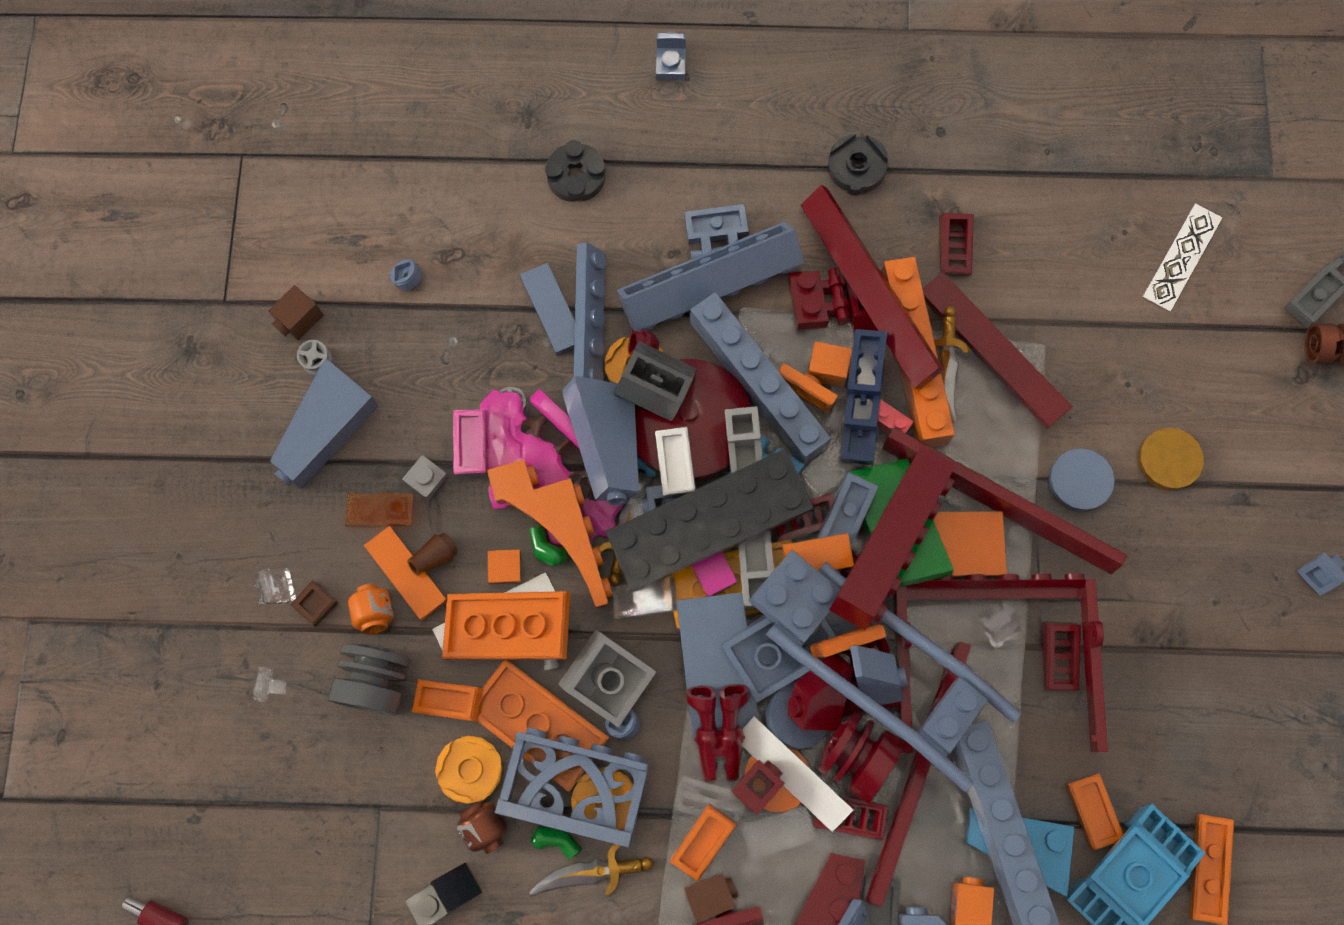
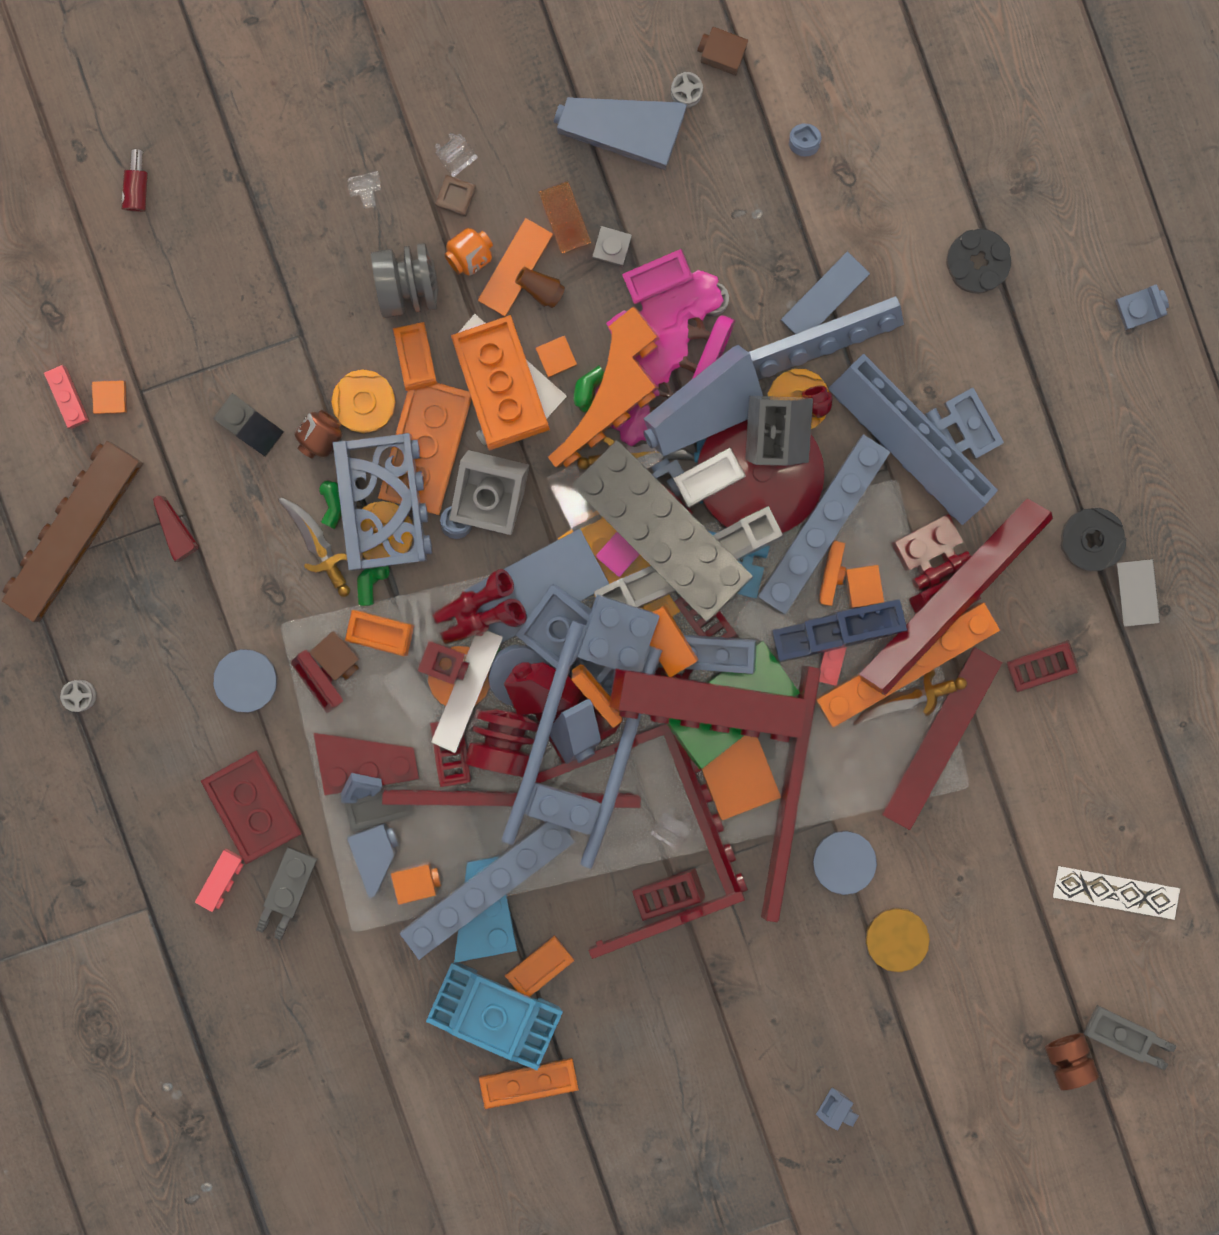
camera: 65 degrees right, 15 degrees up
(647, 837) = (366, 581): none -> green arm
(920, 140) = (1138, 592): none -> light grey hinge

